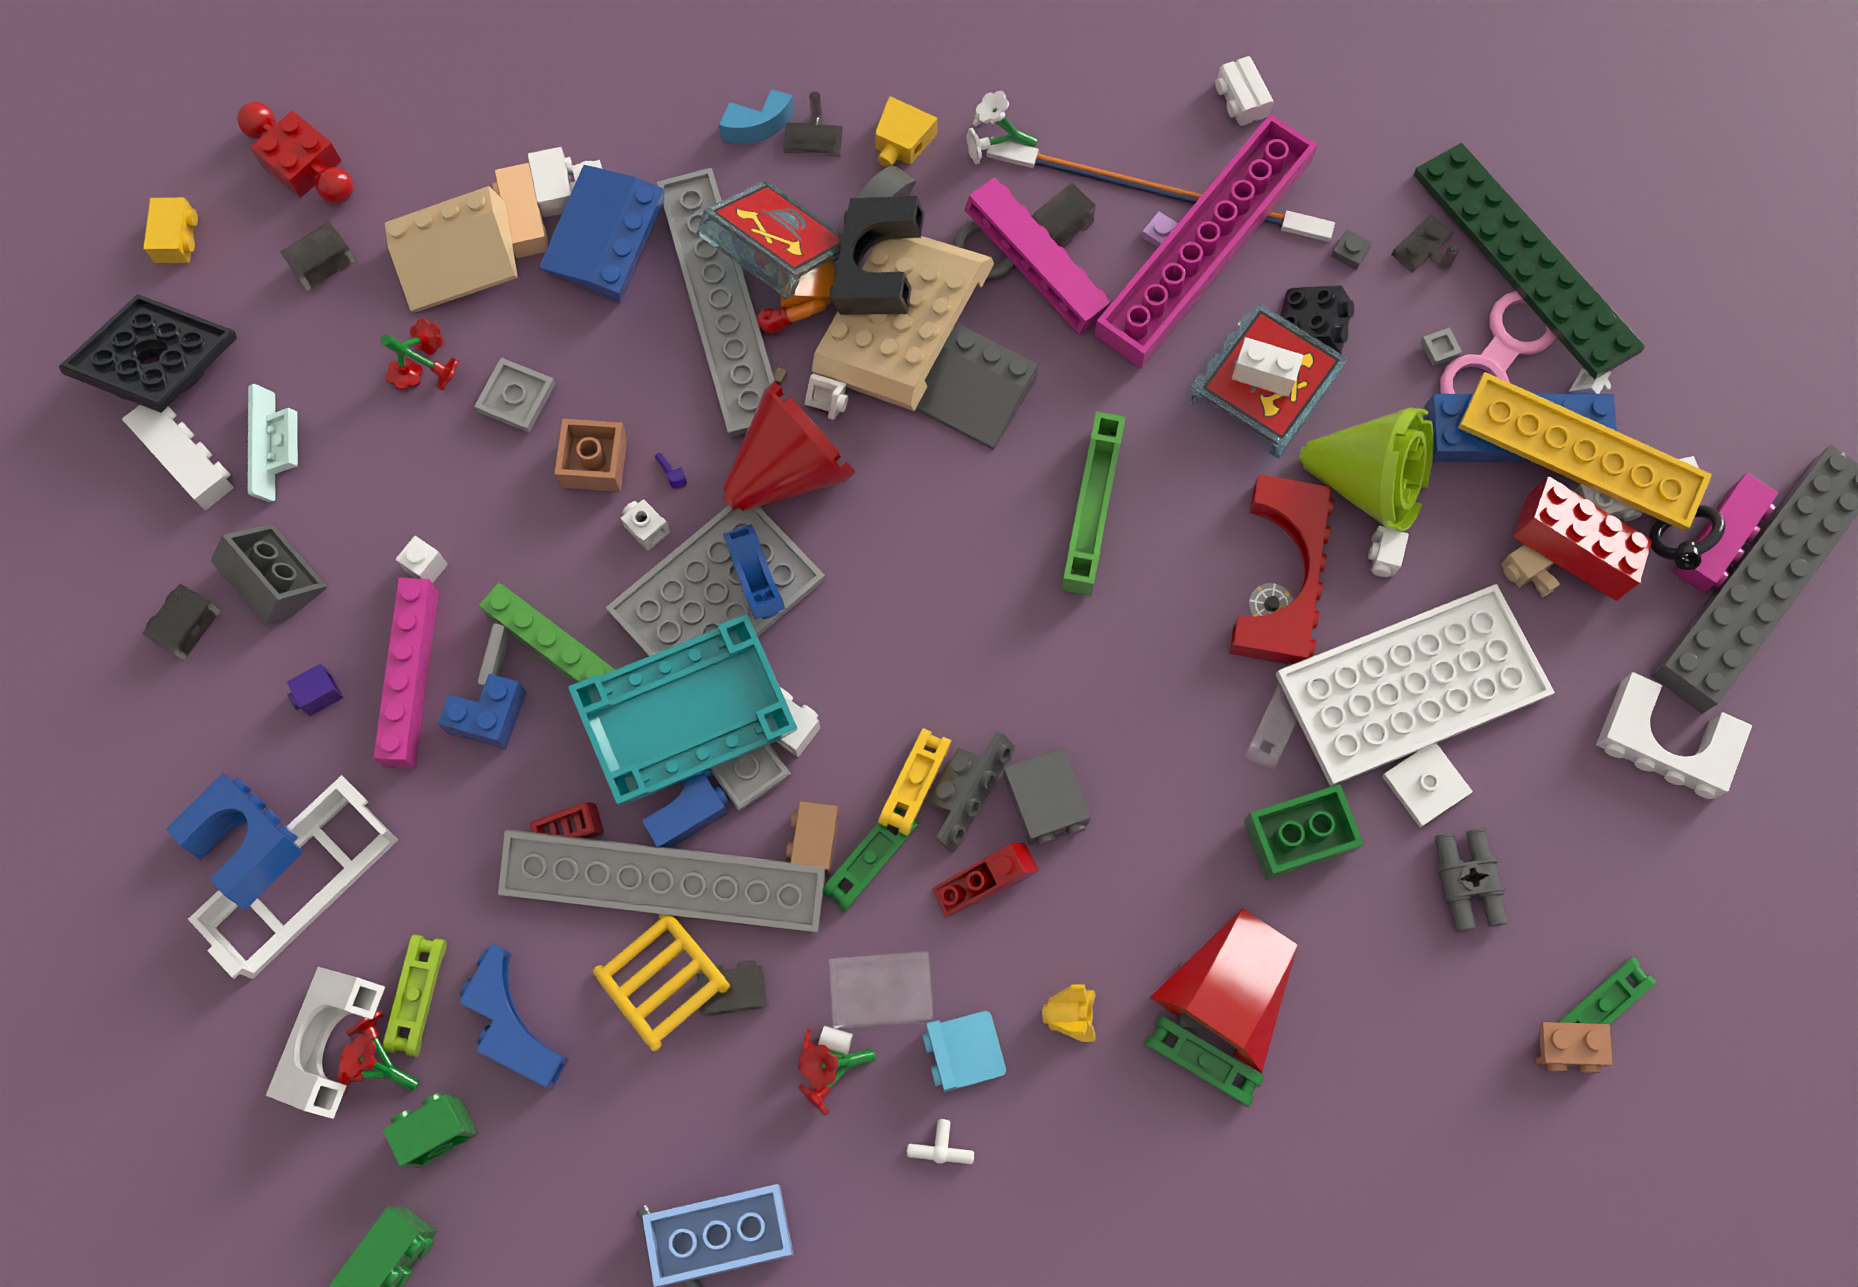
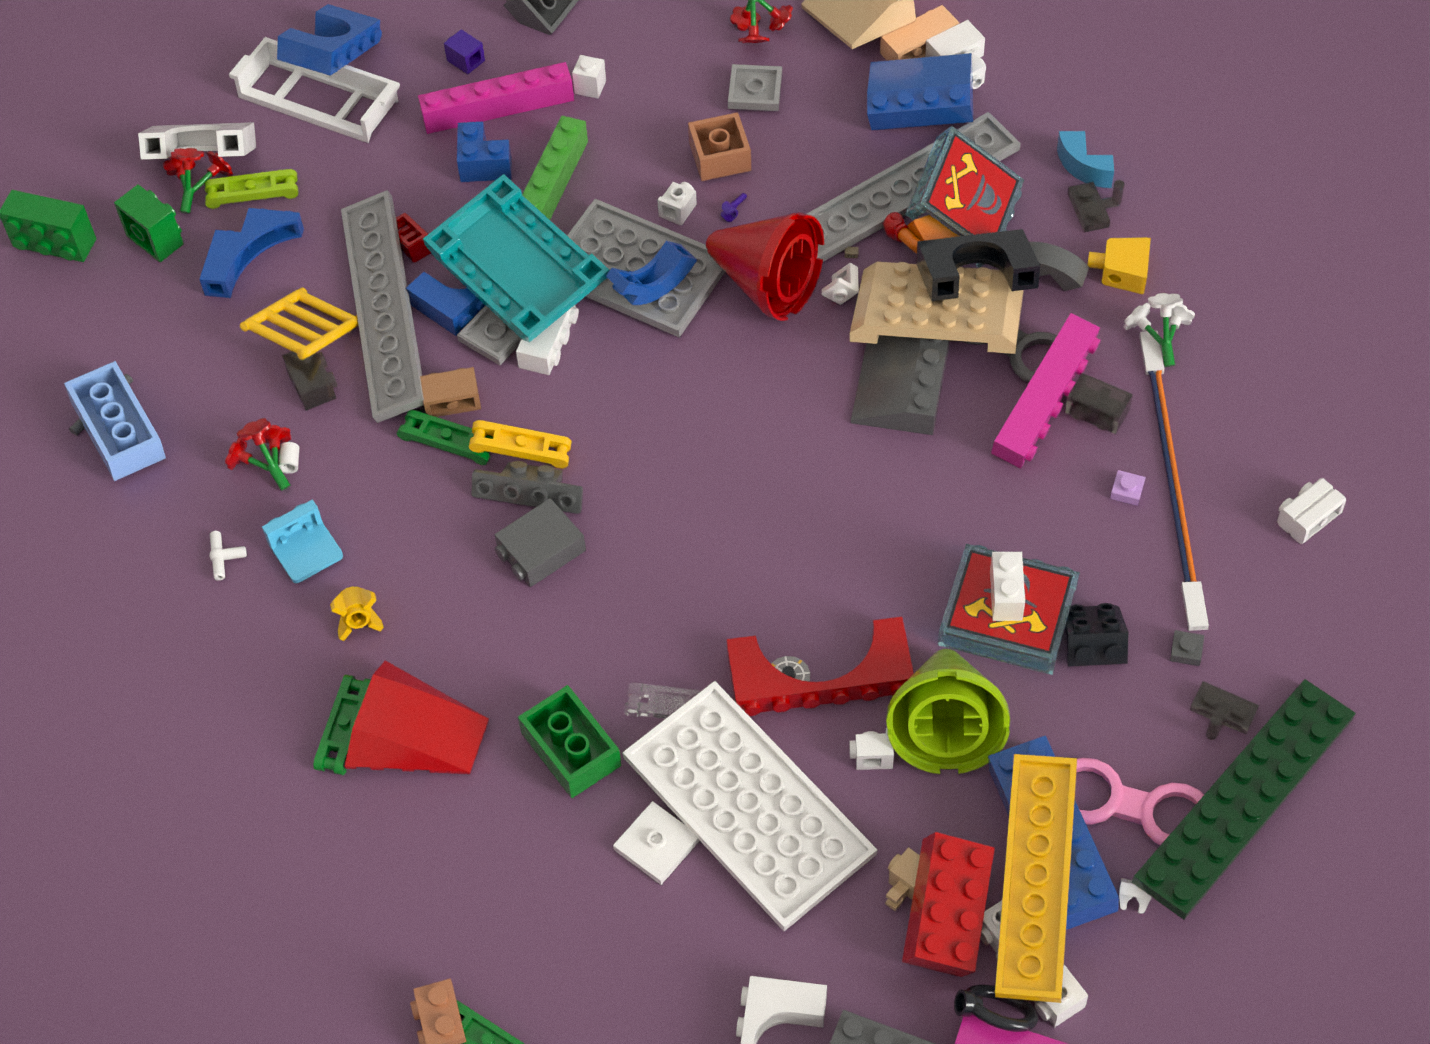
camera: 75 degrees right, 15 degrees down
(495, 653) = (529, 145): light grey tile -> none
(881, 990) = (335, 470): clear brick -> none
(985, 878) = (456, 521): red slope -> none
(1093, 504) = (874, 495): bright green arch -> none
(1205, 241) = (1127, 514): dark pink brick -> none
(1441, 347) = (1113, 747): light grey plate -> none
(1460, 892) = (569, 912): dark grey pin -> none

